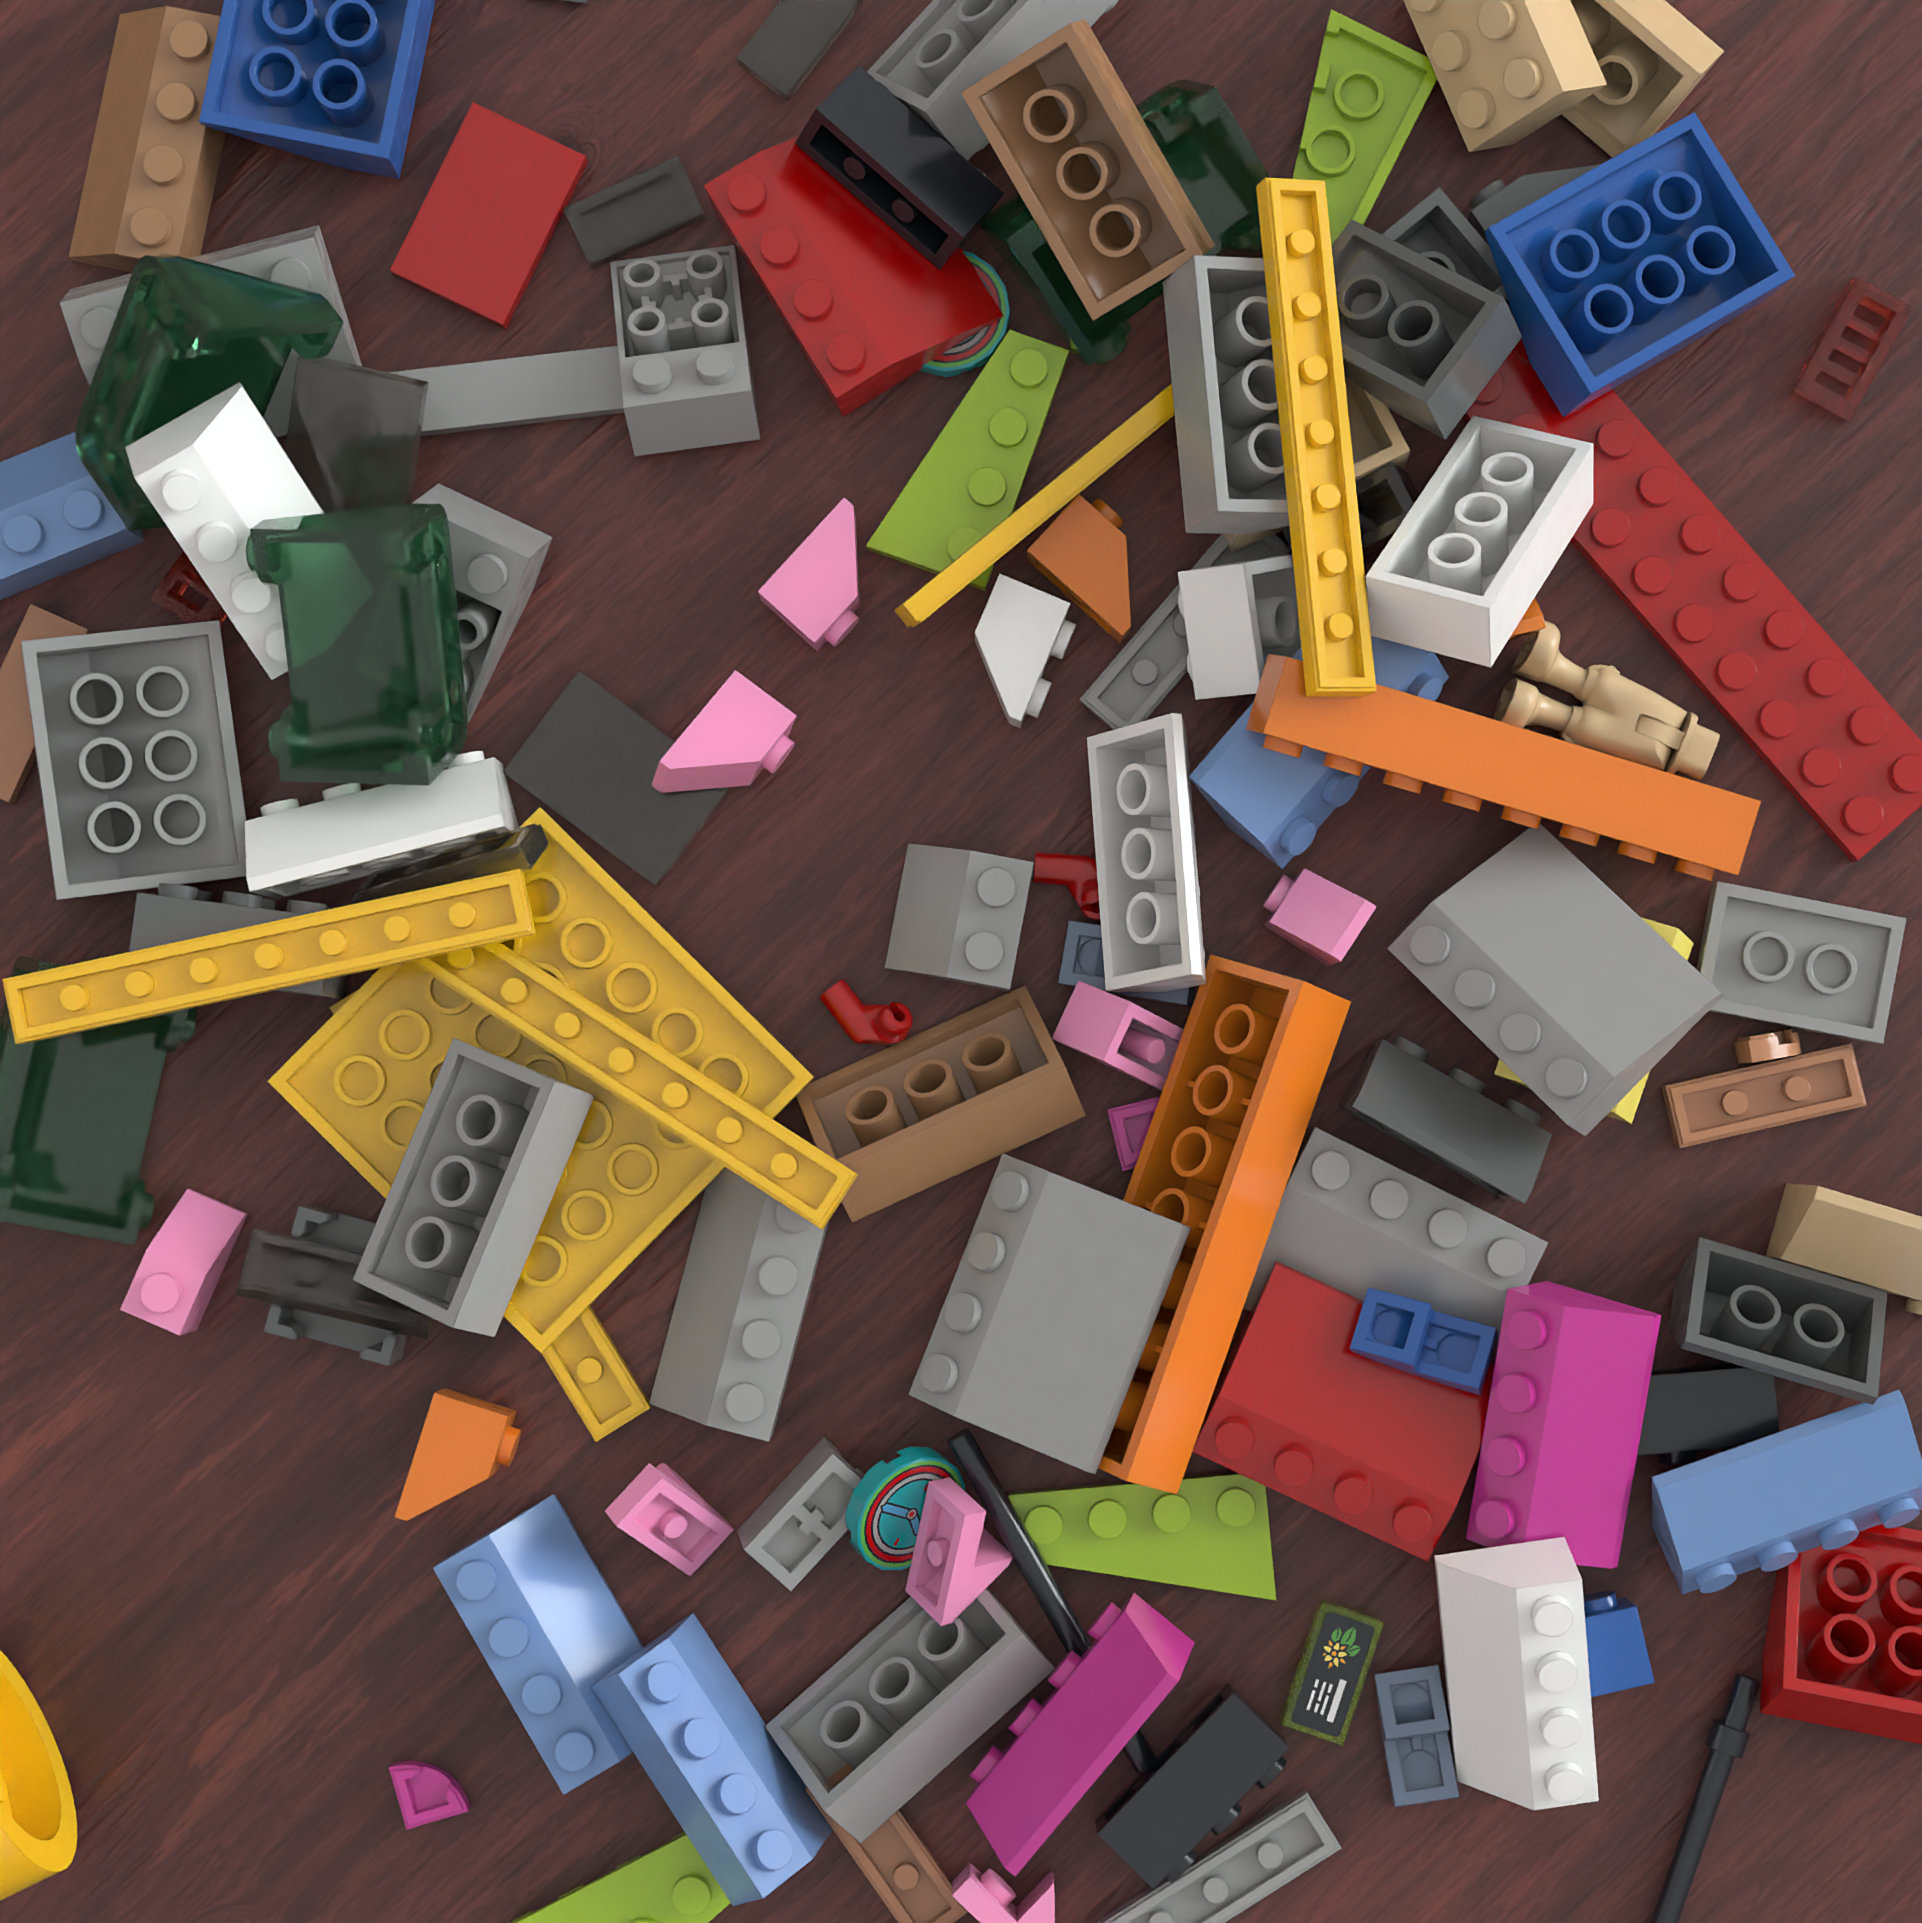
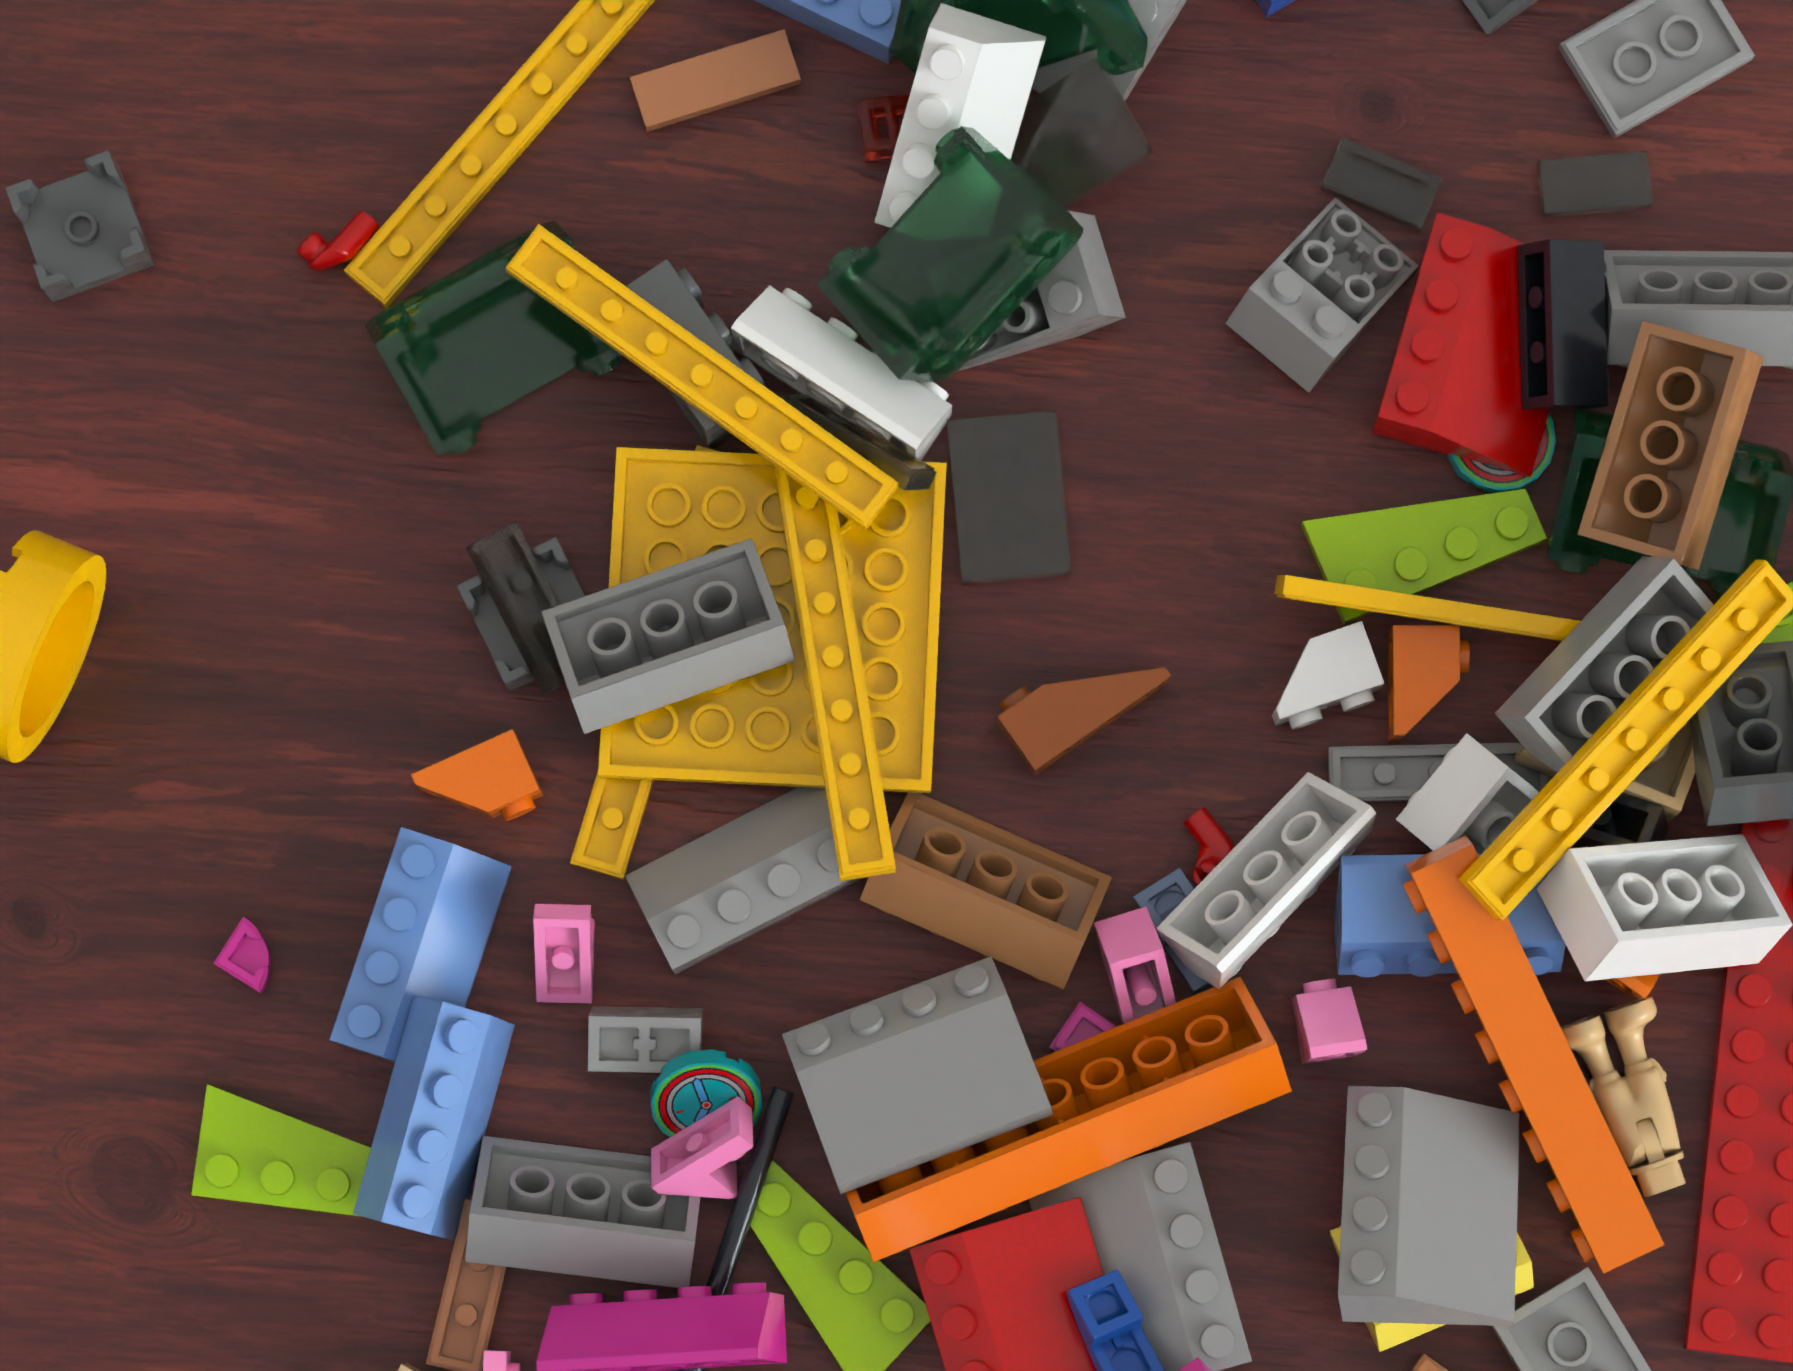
camera: 45 degrees right, 5 degrees down
(136, 758) = (746, 182): light grey slope -> none
(184, 1263) = (452, 498): bright pink slope -> none
(489, 215) = (1294, 95): red tile -> none
(520, 390) = (1201, 214): light grey tile -> none
(728, 741) = (1097, 544): bright pink slope -> none
(820, 581) = (1252, 512): bright pink slope -> none
(850, 901) = (1067, 713): none -> dark orange slope
(867, 1022) = (996, 797): red arm -> none
(959, 915) = (1119, 794): light grey slope -> none
(1448, 1119) = (1273, 1226): dark grey slope -> none

